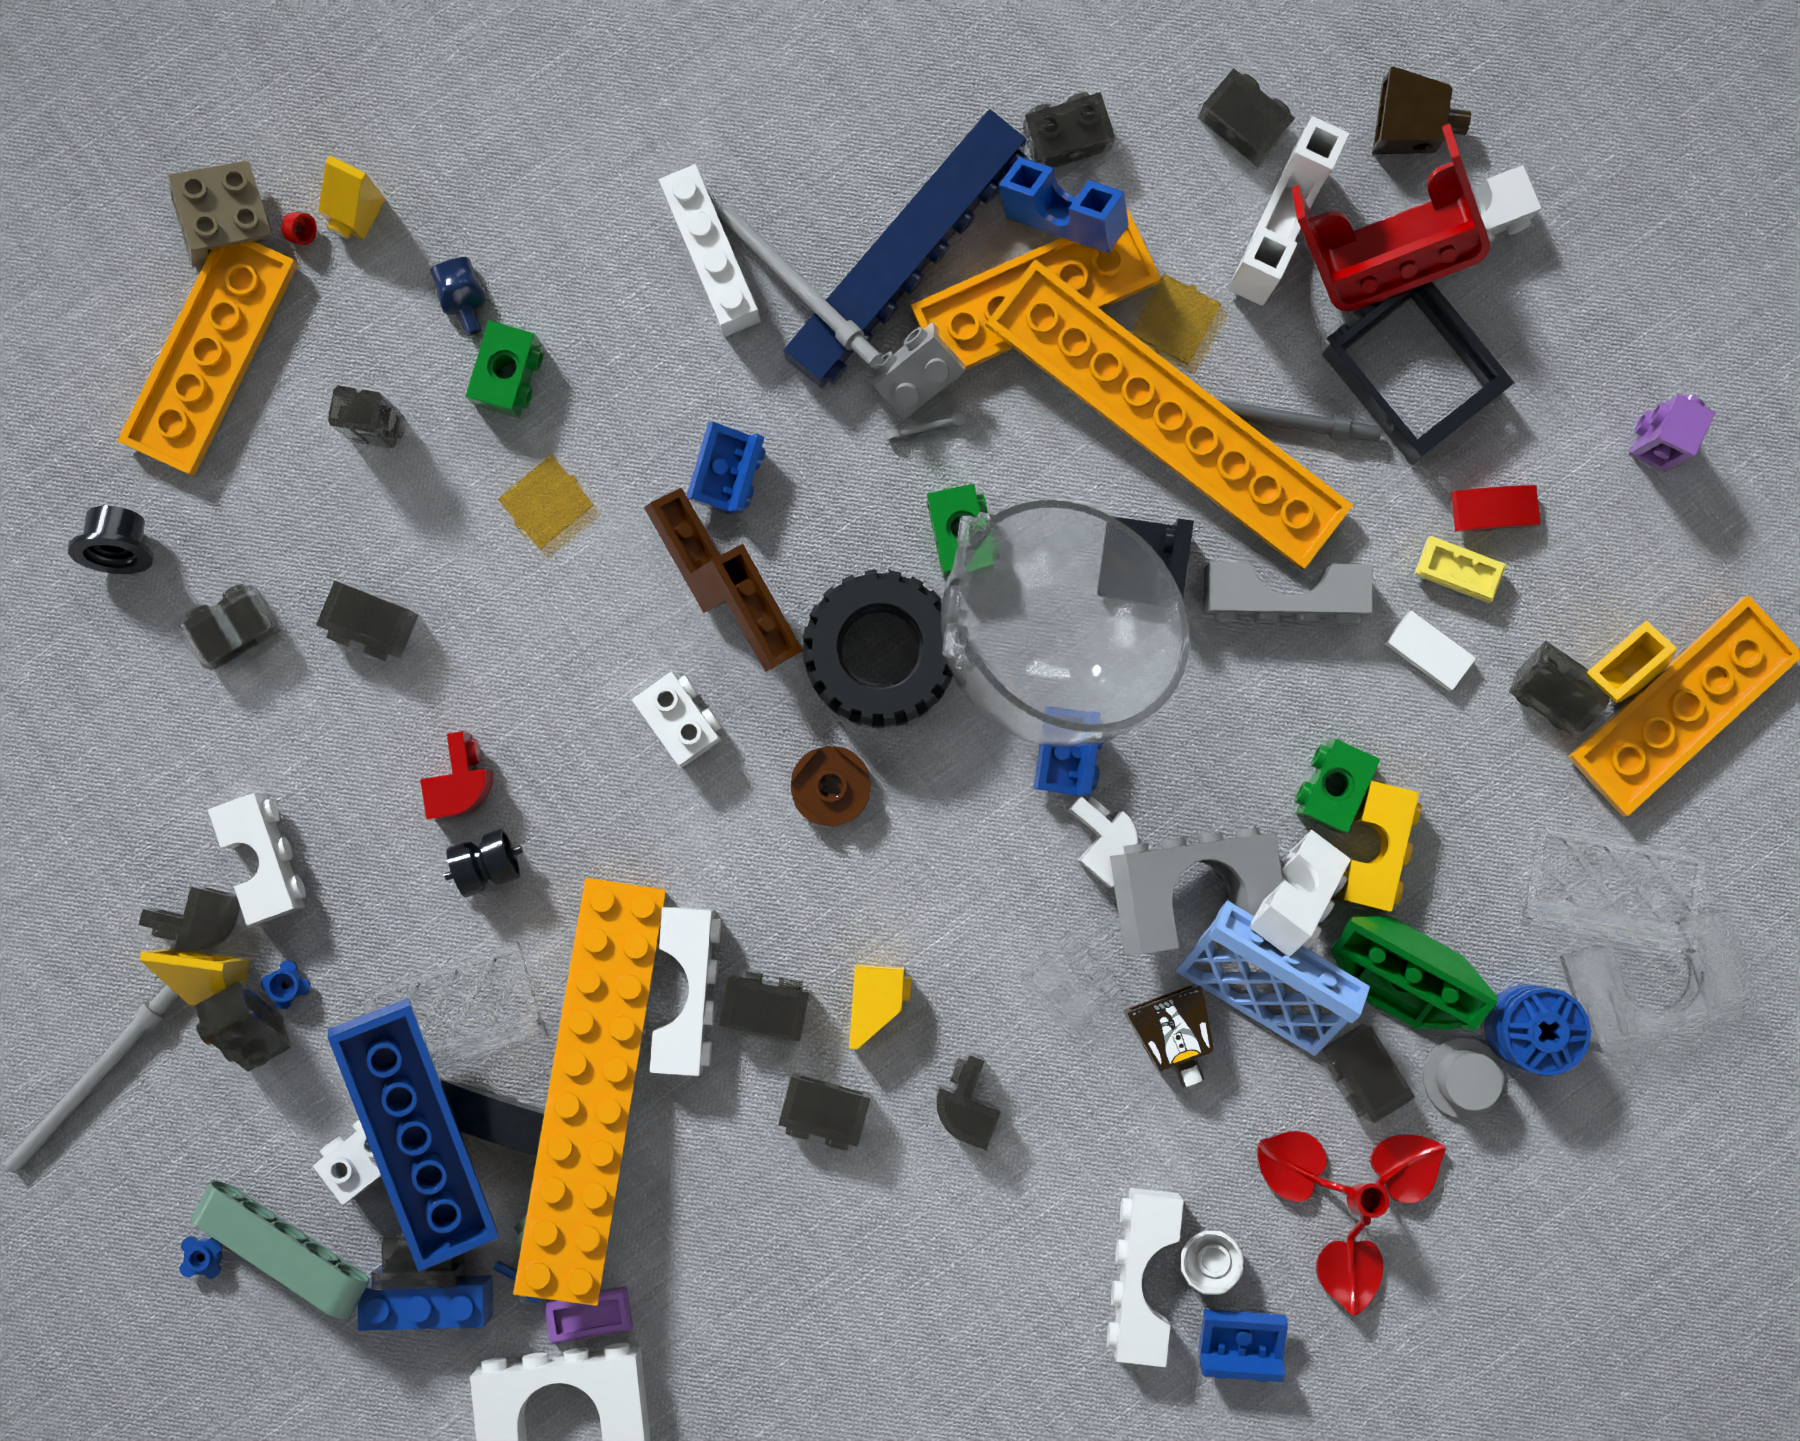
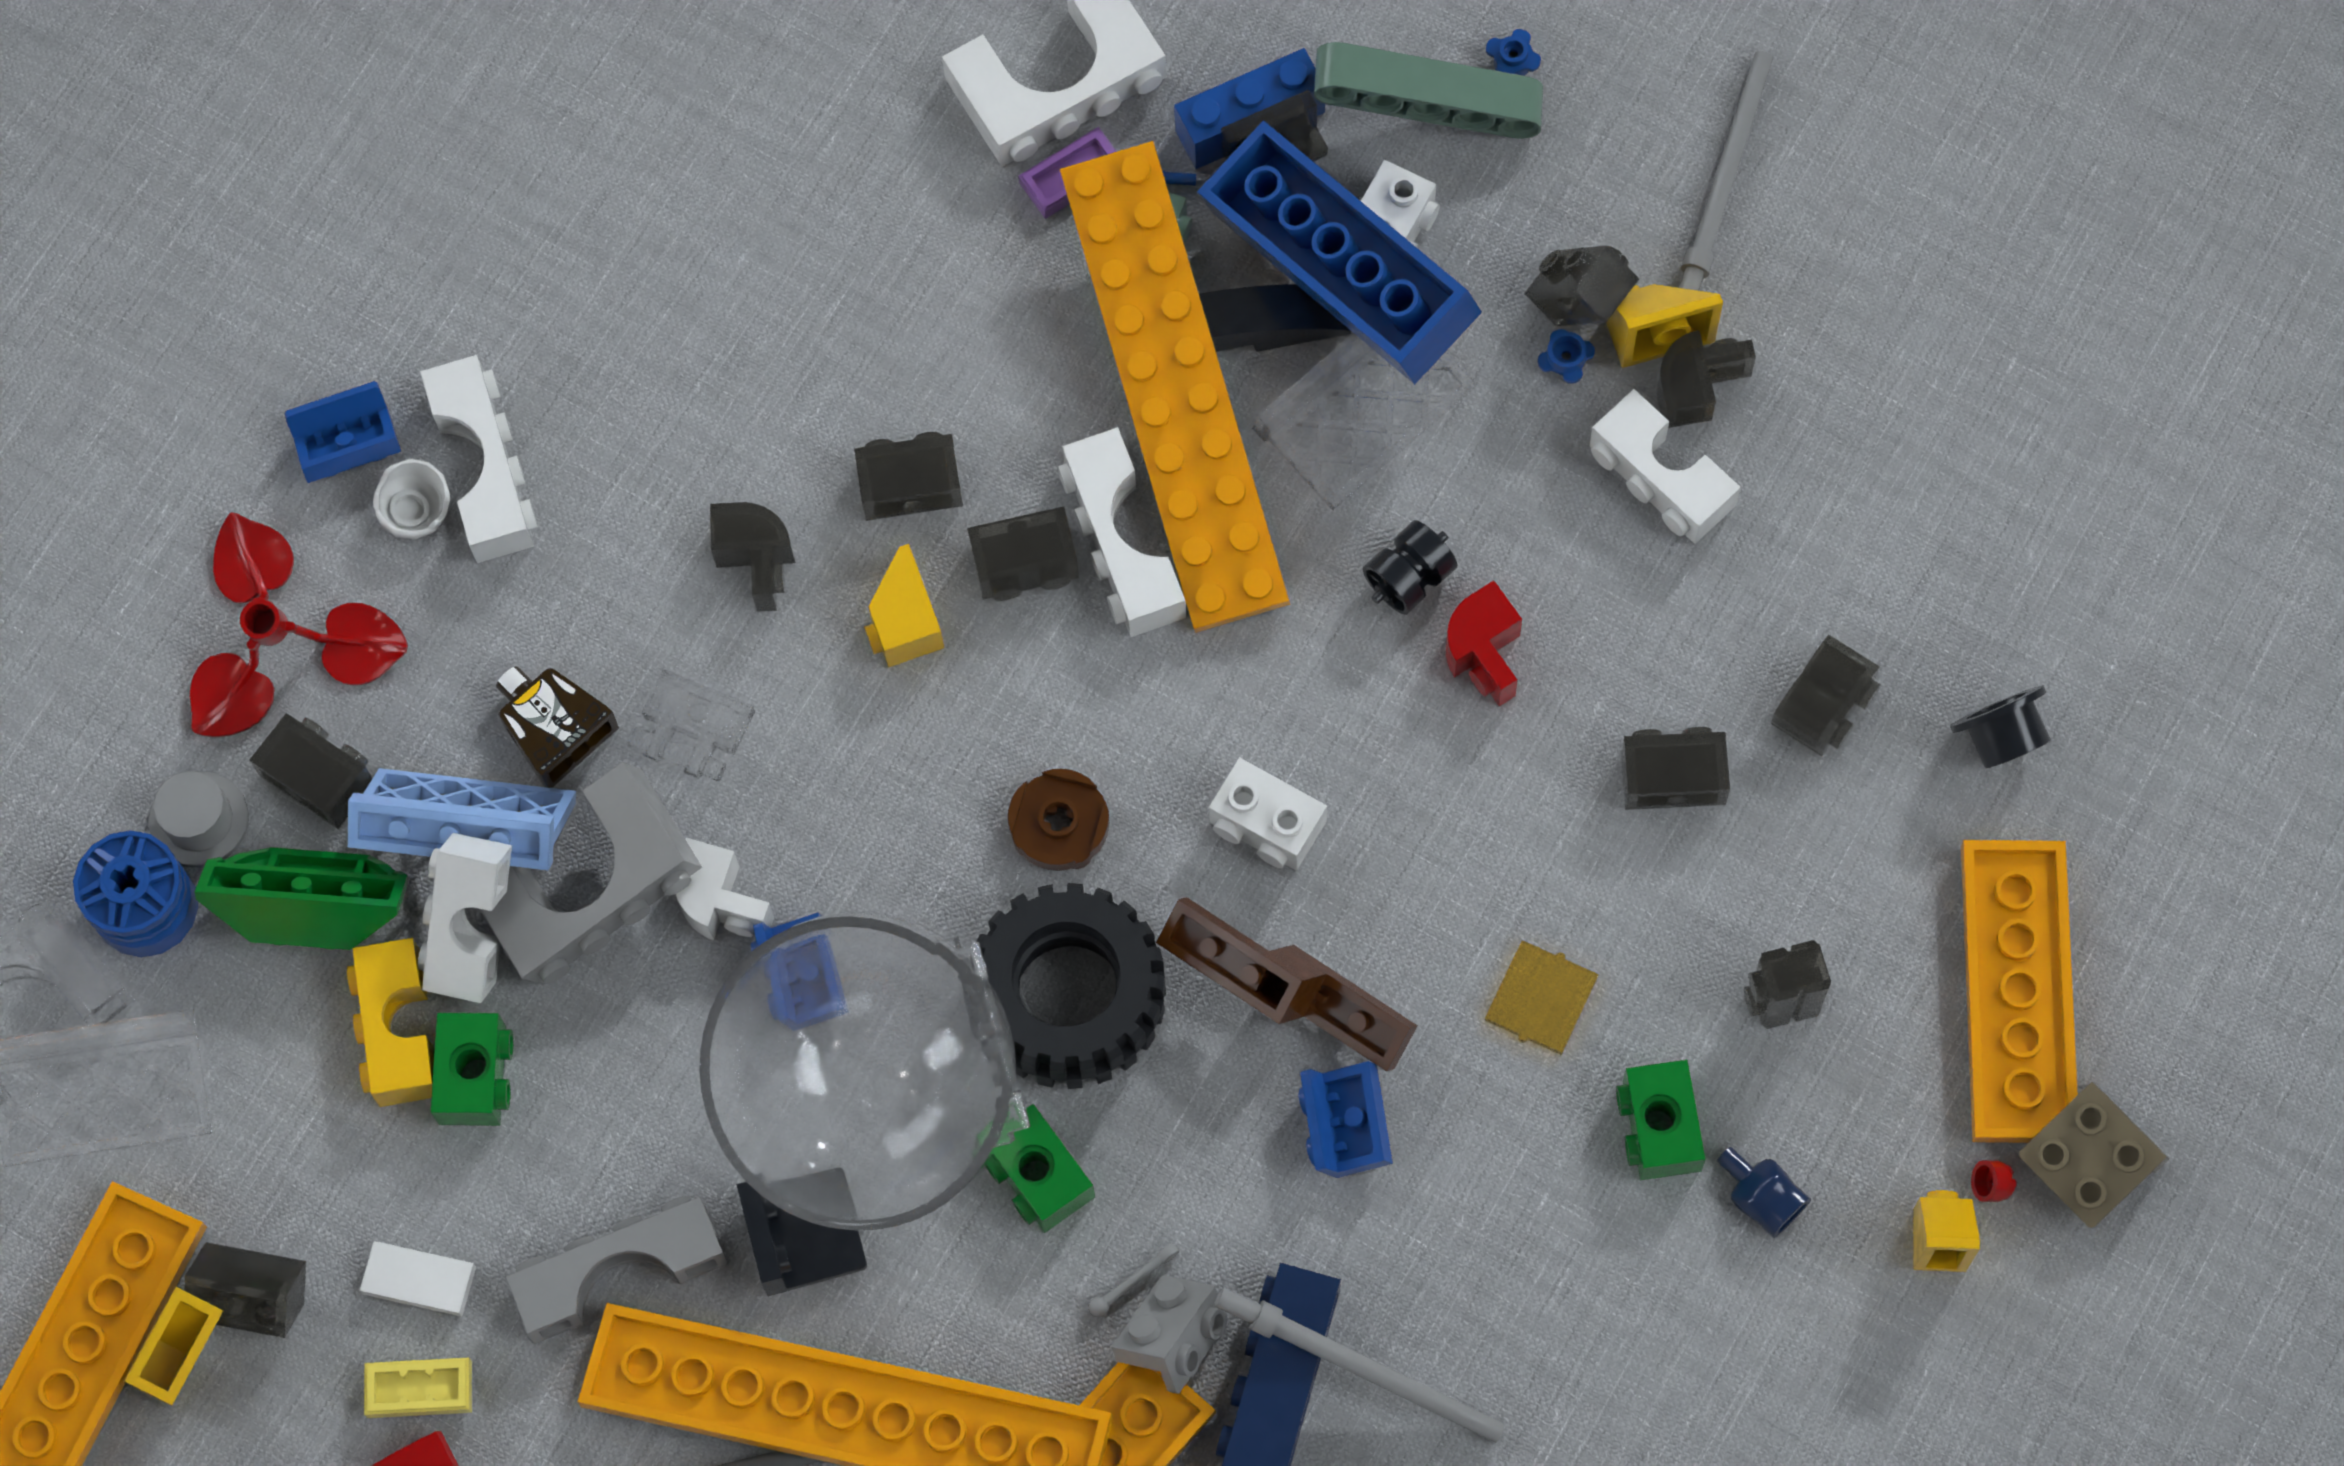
camera: 160 degrees right, 15 degrees down
(710, 250) = (1466, 1344): white arch -> none

